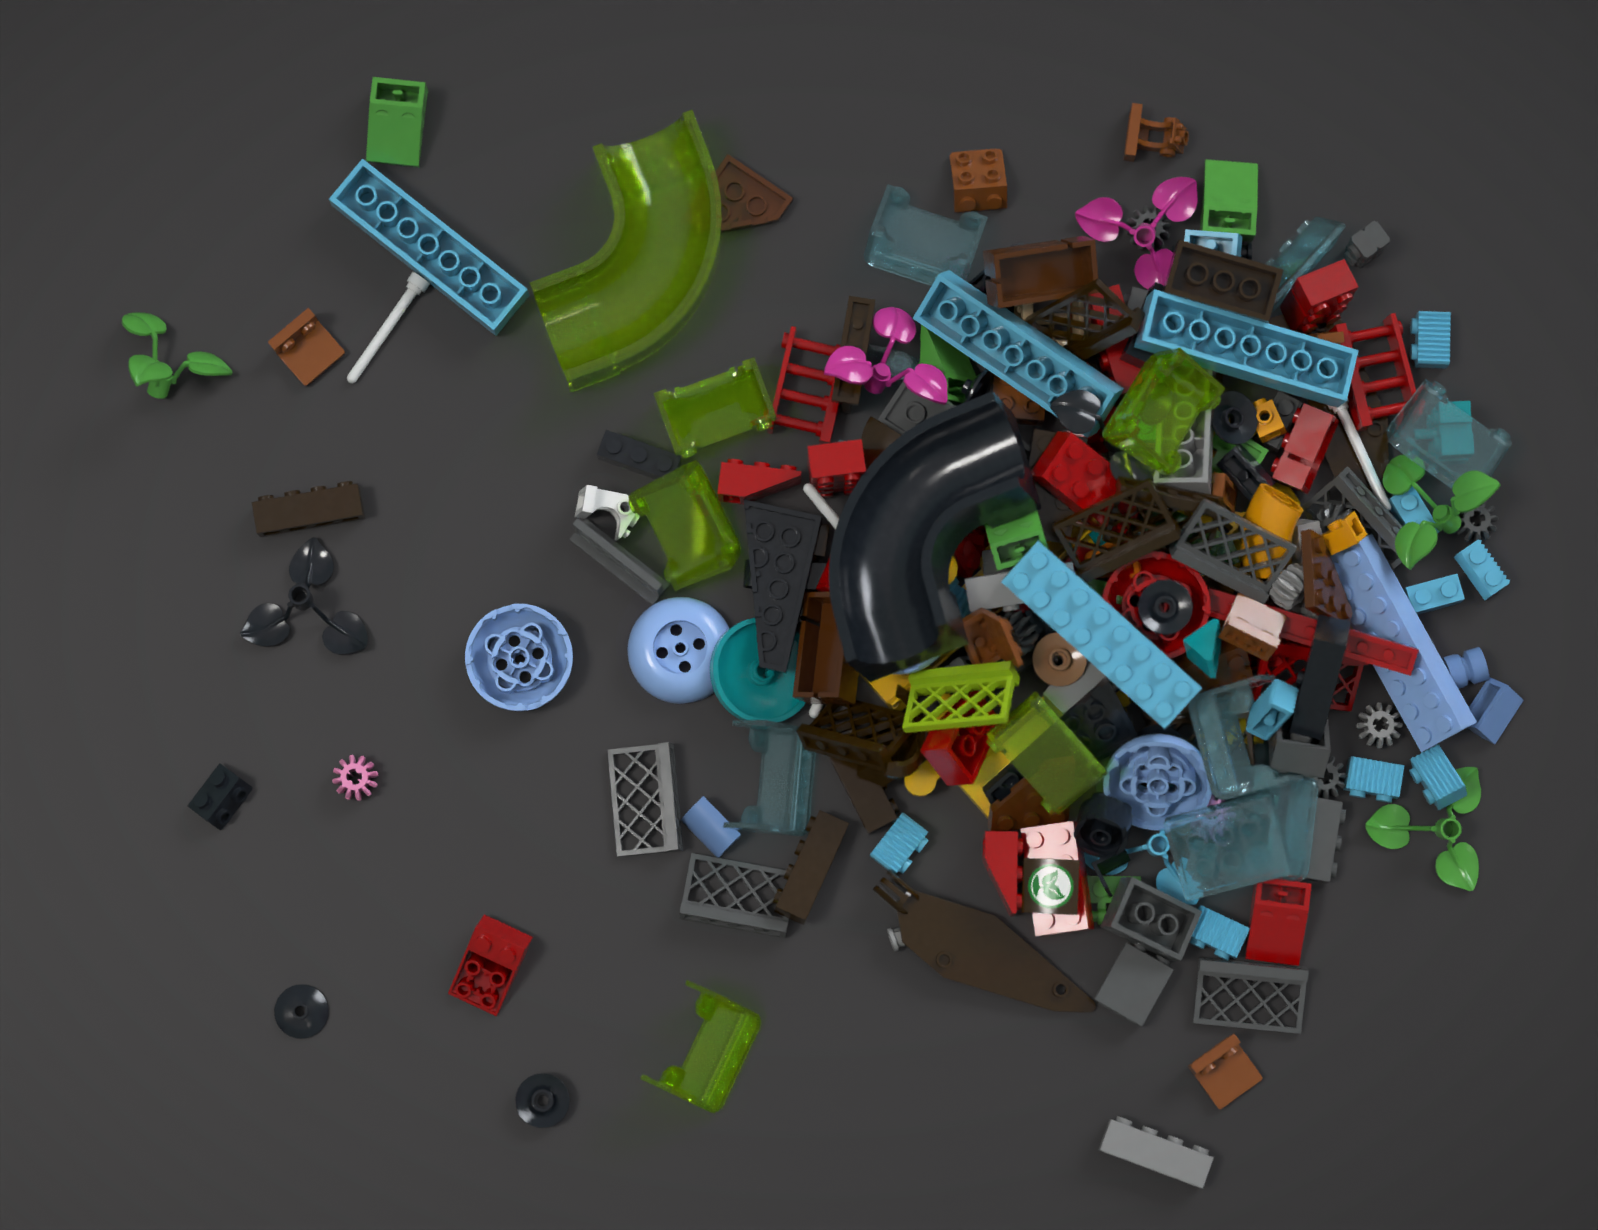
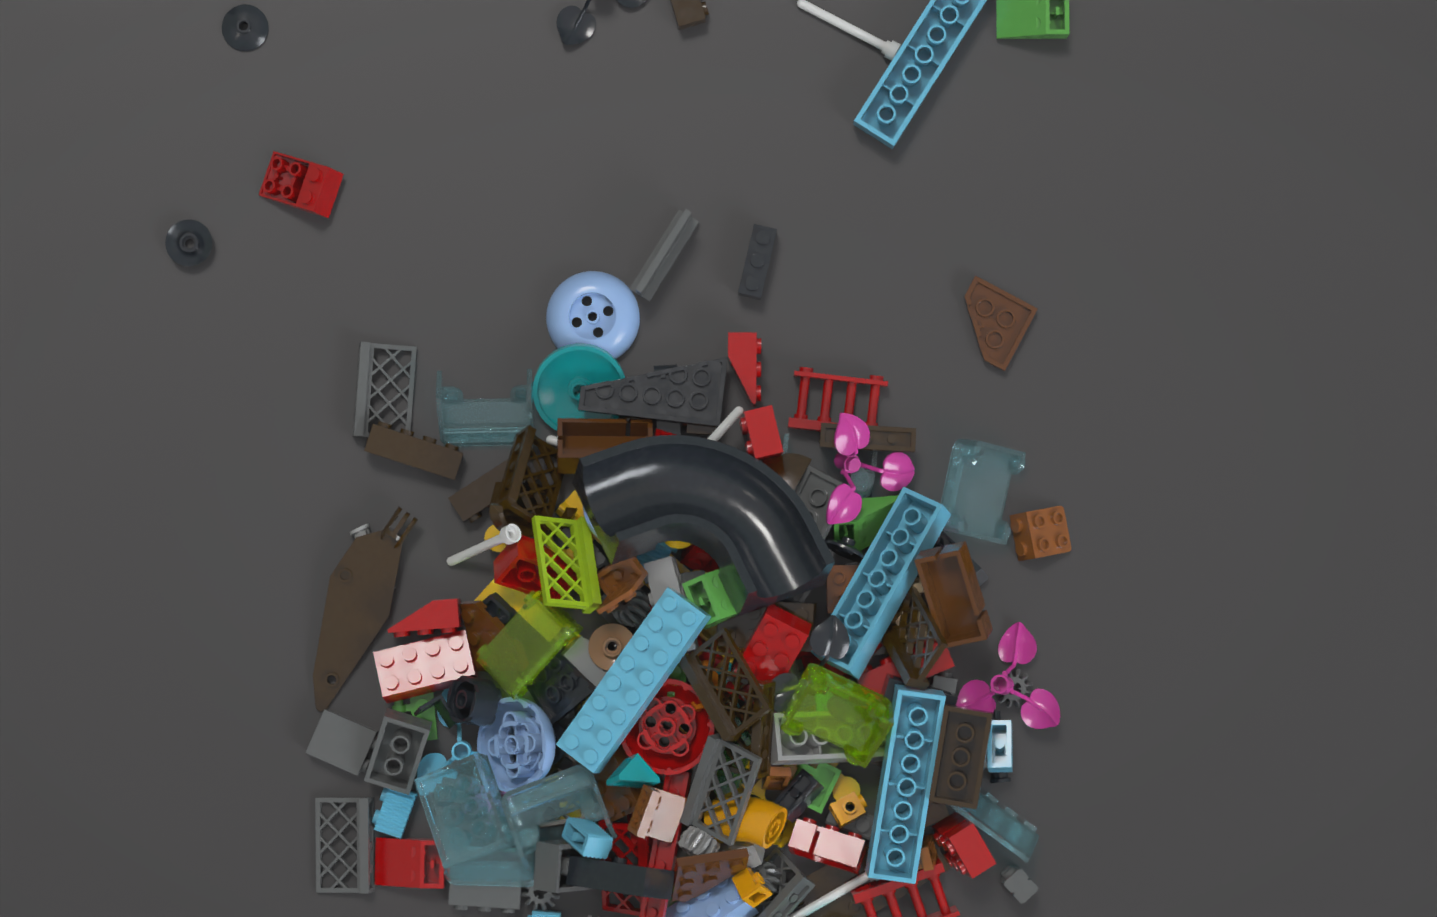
camera: 85 degrees right, 5 degrees up
(348, 784) = (442, 45): bright pink gear -> none
(491, 643) = (579, 151): light blue brick -> none
(595, 499) = (714, 227): white tile -> none
(651, 267) = (930, 253): clear neon green piece -> none
(667, 793) = (462, 321): fence -> none
(688, 525) = (700, 311): clear neon green windscreen -> none
(707, 826) = (441, 358): medium blue brick -> none
(715, 408) = (805, 322): clear neon green windscreen -> none
(715, 1053) = (241, 385): clear neon green windscreen -> none
(899, 844) = (442, 525): medium azure brick -> none
(922, 758) = (509, 535): none -> white piece
(1050, 886) = (414, 660): slope -> none
(1137, 135) = (1098, 670): dark orange tile -> none
(1155, 1153) = (198, 776): light grey brick -> none
(1175, 597) = (655, 743): black dish -> none
(1225, 1071) = (275, 829): dark orange bracket -> none
(1230, 198) = (1047, 757): bright green slope -> none
(1242, 417) = (843, 787): black dish -> none

